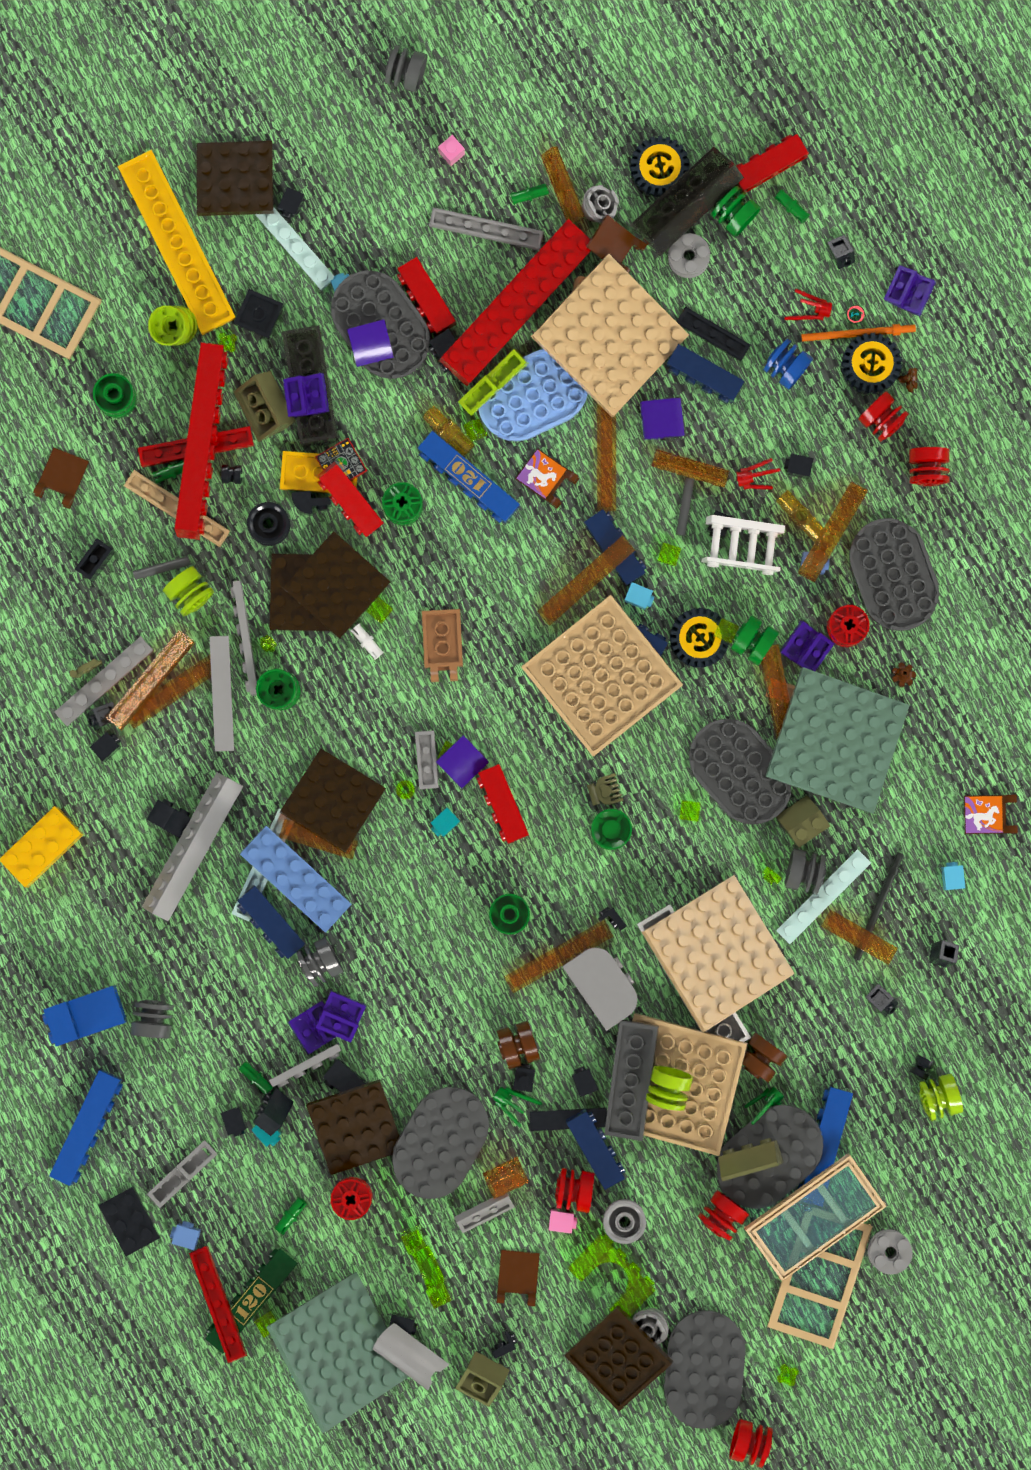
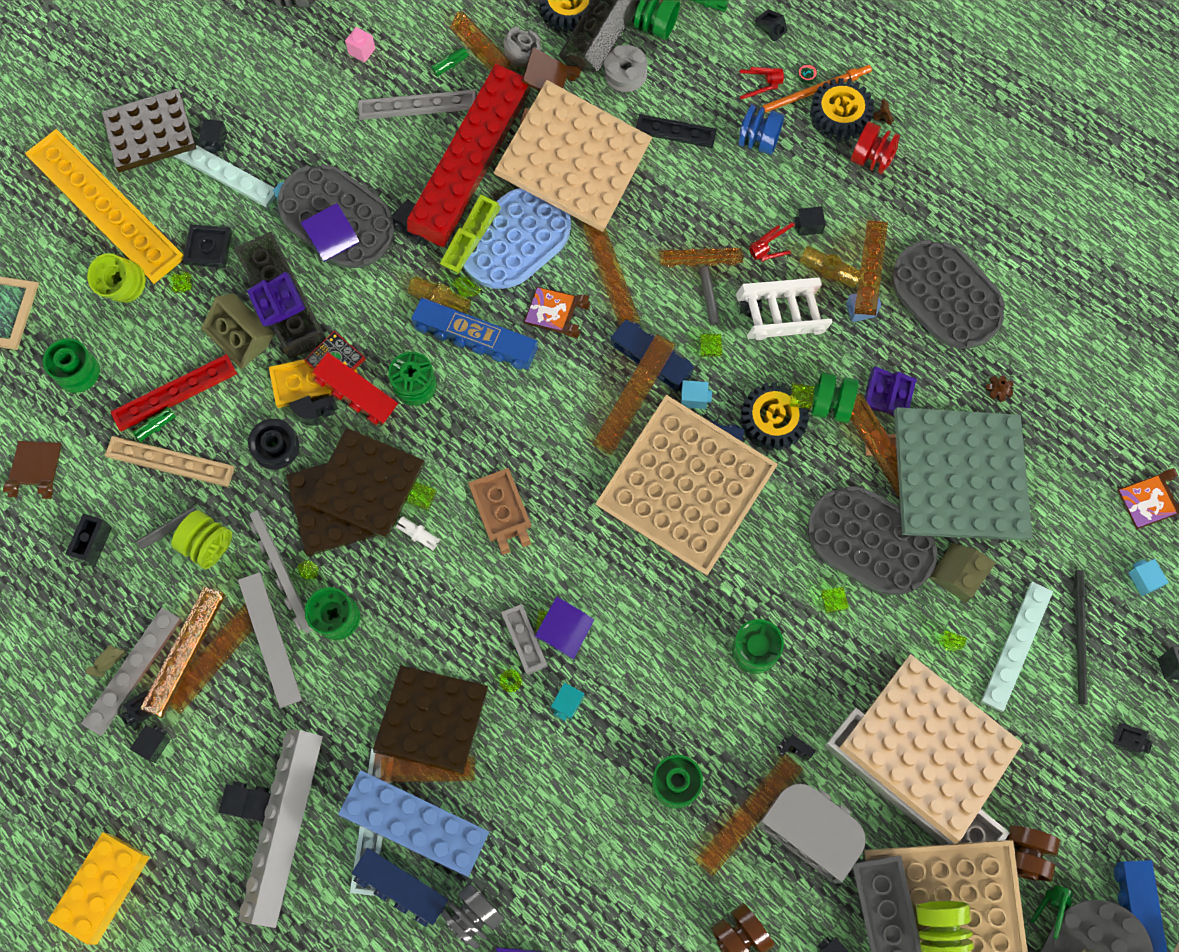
camera: 20 degrees left, 15 degrees down
(200, 439) = (174, 382): red brick -> none
(231, 474) = (219, 407): black wheel -> none
(426, 296) = (375, 177): red brick -> none
(503, 804) = (626, 659): red brick -> none
(602, 792) = (731, 611): olive piece -> none
(662, 418) = (654, 220): dark purple slope -> none
(704, 373) = (681, 166): dark blue brick -> none
(805, 871) = (989, 621): dark grey wheel -> none
(838, 631) = (924, 354): red wheel -> none
(859, 937) = (1078, 676): clear orange plate -> none
(909, 290) = (850, 39): dark purple slope -> none
(929, 466) = (940, 178): red wheel -> none

